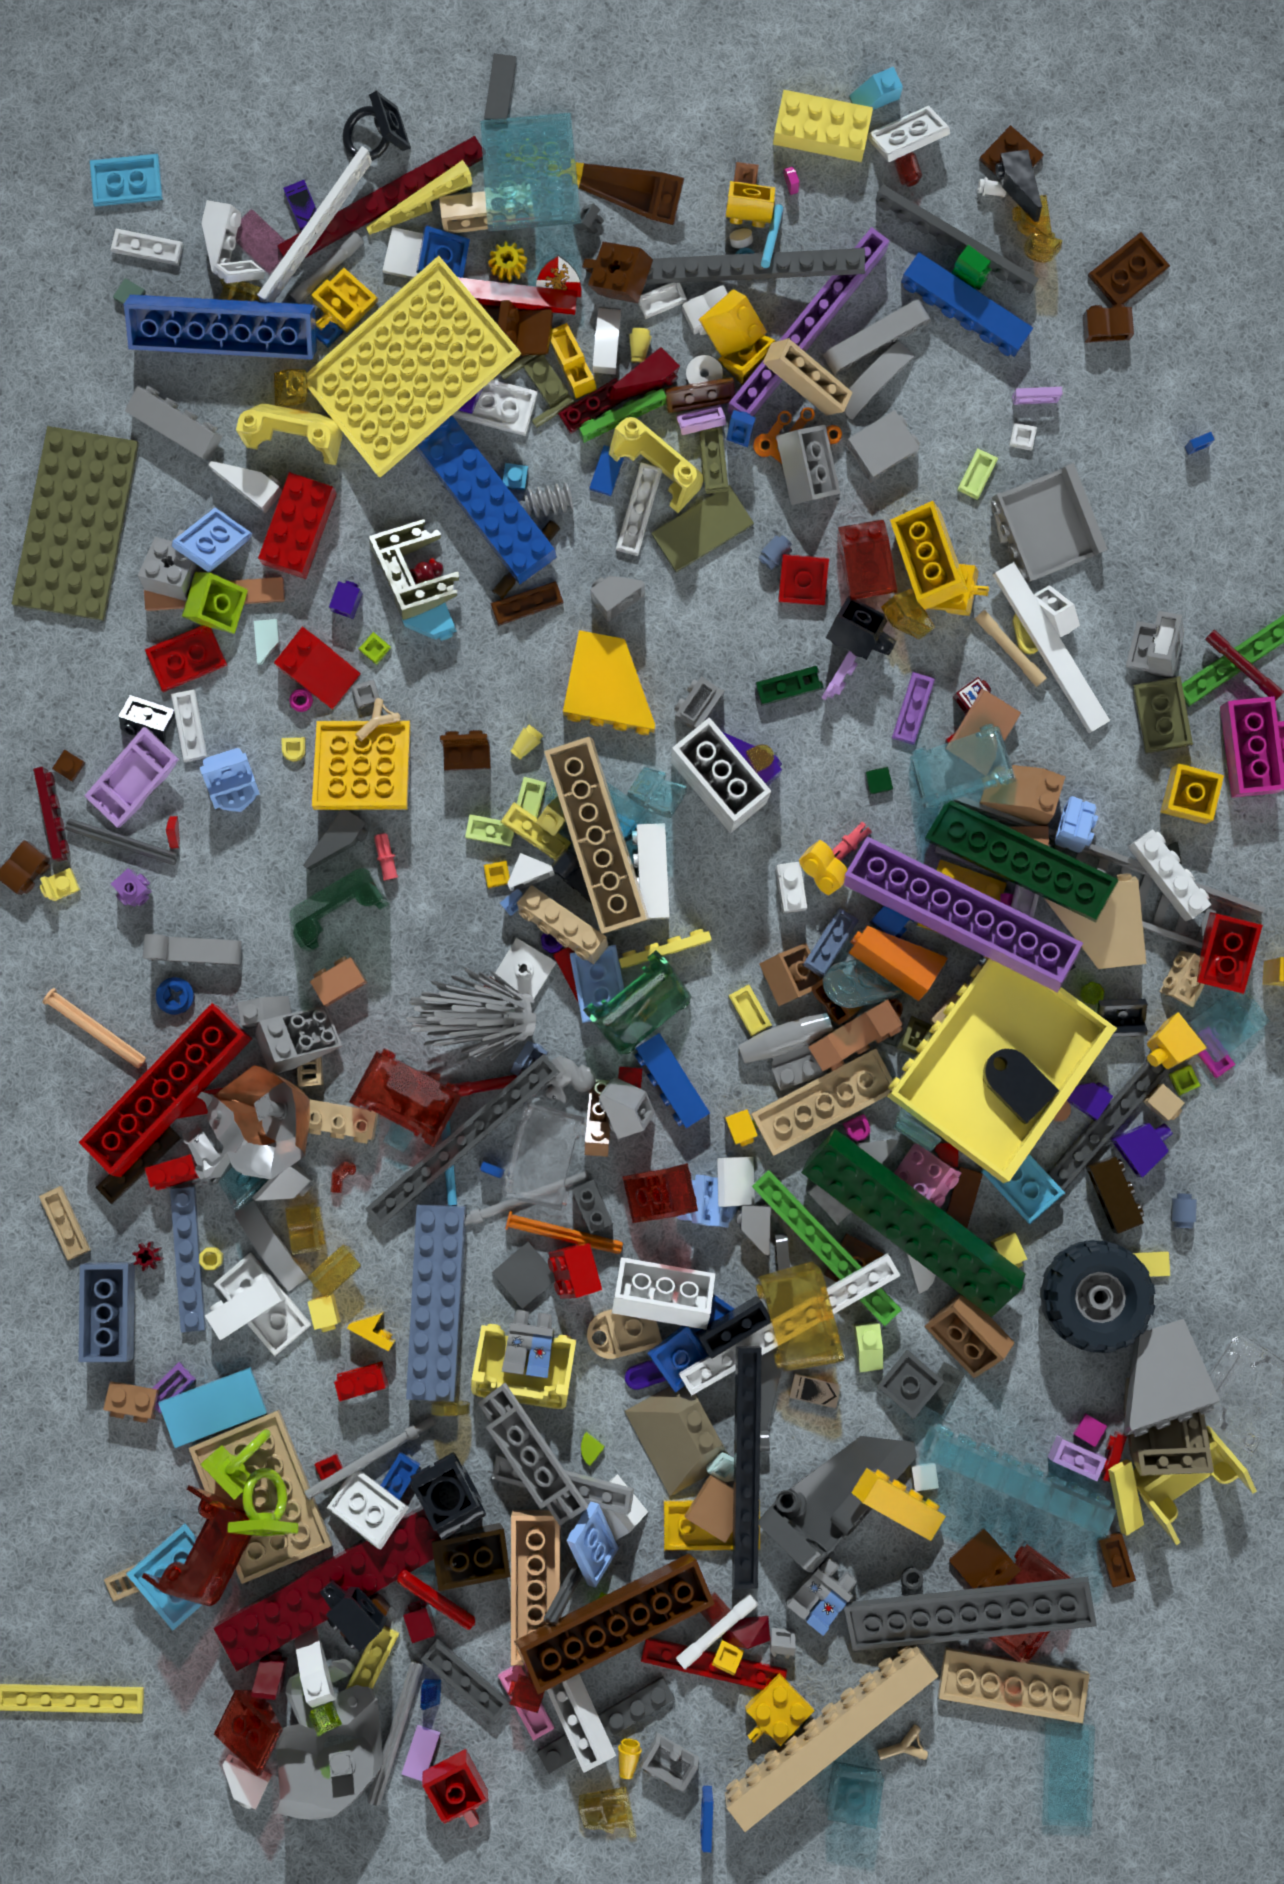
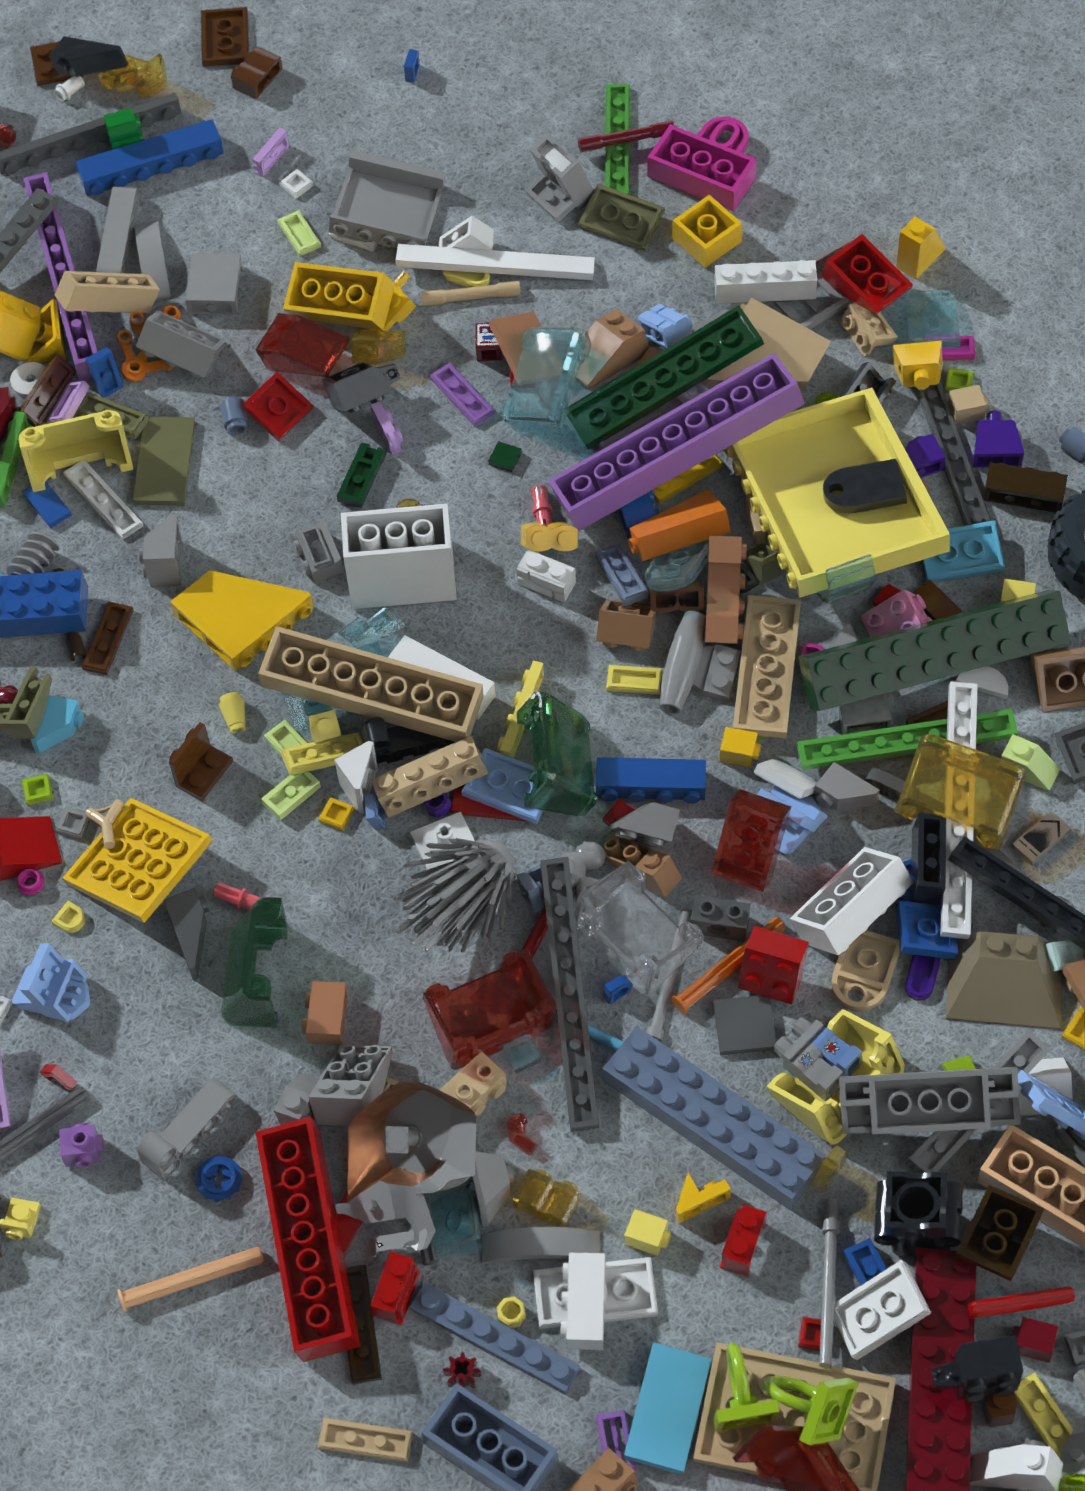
camera: 50 degrees left, 25 degrees down
(335, 1270) = (612, 1191): clear yellow panel -> none

